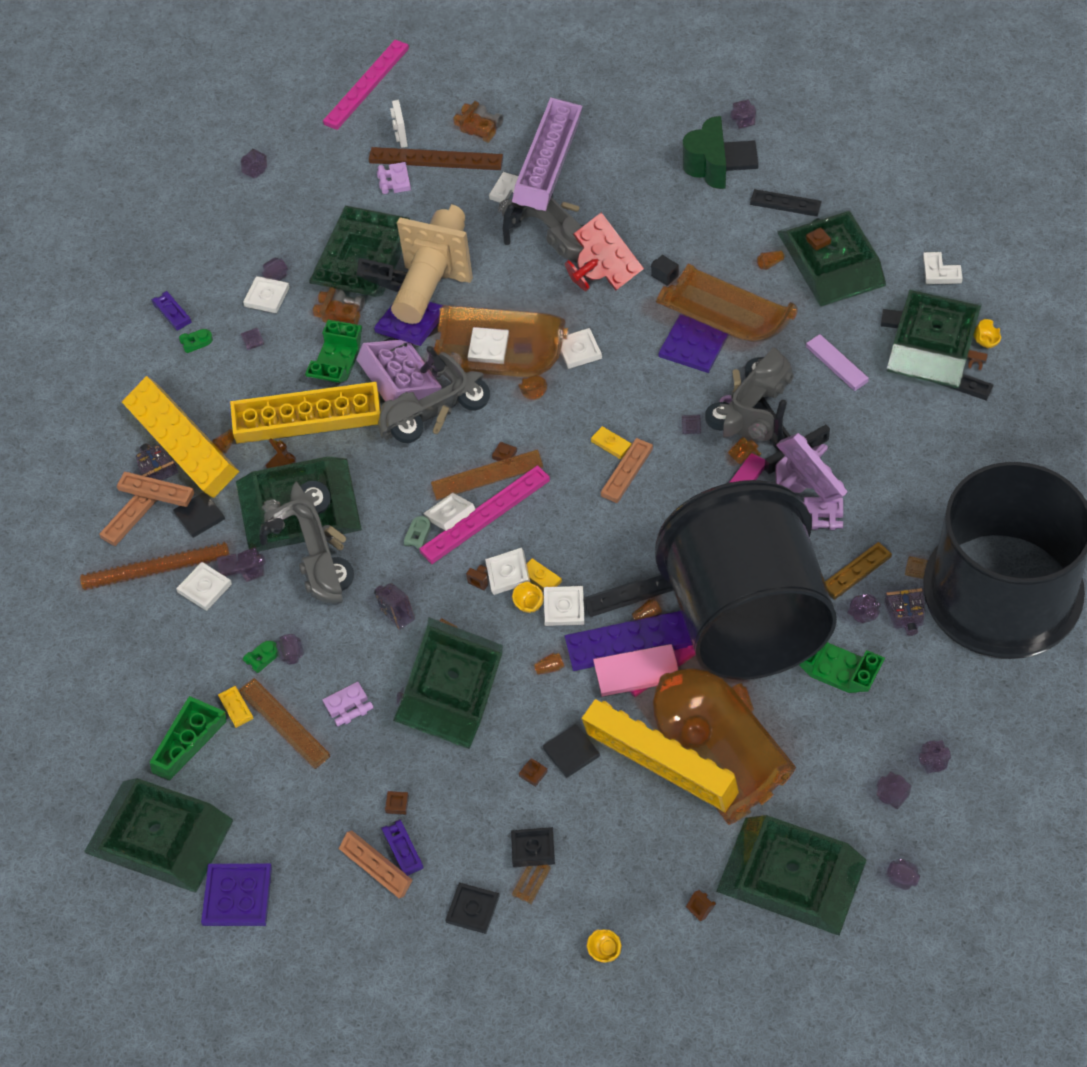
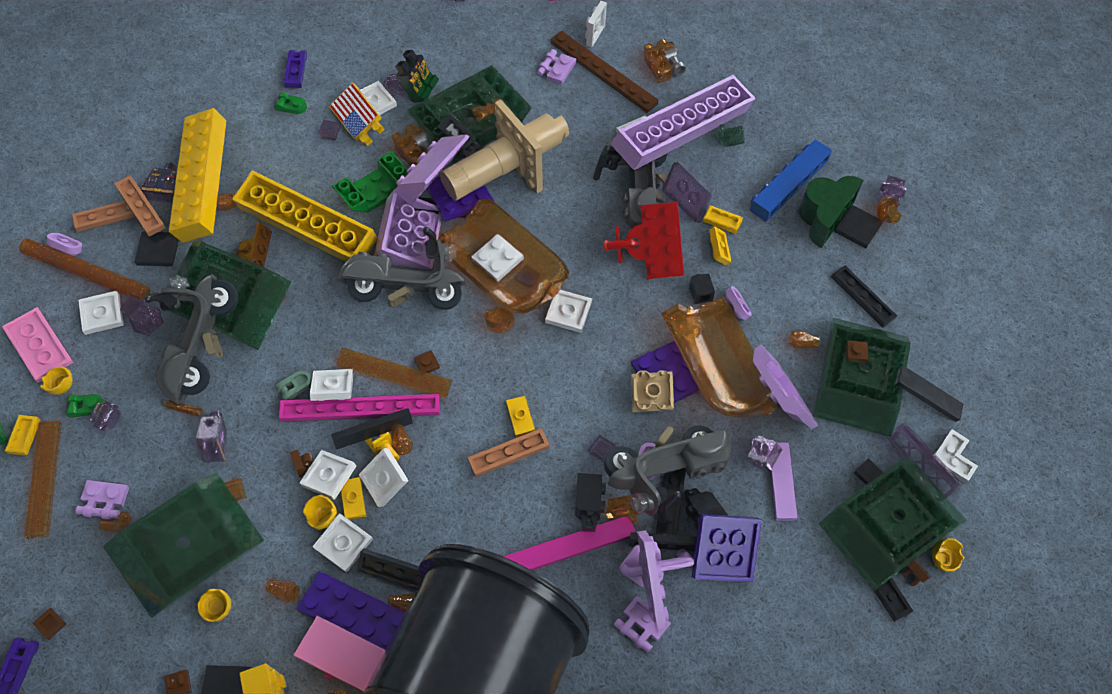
camera: 30 degrees right, 5 degrees up
(116, 559) = (64, 243): none -> lavender plate
(173, 643) = (36, 343): none -> bright pink tile
(223, 652) = (57, 381): none -> yellow hair
(265, 311) = (357, 114): none -> tile
(292, 254) = (415, 76): none -> hips
(345, 605) = (184, 408): none -> clear orange piece
(378, 711) = (119, 524): none -> clear orange arm
(382, 306) = (429, 167): none -> lavender slope
(384, 231) = (481, 111): none -> clear orange piece
(510, 520) = (371, 428): none -> black tile
(511, 705) = (214, 605): none -> yellow hair
(529, 526) = (382, 442): none -> yellow bracket
(539, 514) = (401, 441): none -> clear orange cone
(553, 544) = (383, 477): none -> white plate
(586, 146) = (731, 136): none -> clear green bracket
(590, 205) = (687, 191): none -> clear purple tile
(635, 212) = (722, 219): none -> yellow plate
(647, 230) = (720, 246): none -> yellow plate
(661, 152) = (790, 180): none -> blue brick
(694, 361) = (652, 391): none -> tan slope
(706, 266) = (735, 299): none -> lavender plate
(715, 460) = (589, 500): none -> black hinge
(751, 130) = (887, 210): none -> clear orange hair
(807, 412) = (702, 503): none -> black hinge
(809, 300) = (782, 387): none -> lavender wedge
(810, 349) = (764, 452): none -> clear purple brick
(840, 422) = (726, 548): none -> plate
(890, 237) = (929, 393): none -> black tile
(920, 277) = (928, 455): none -> clear purple fence

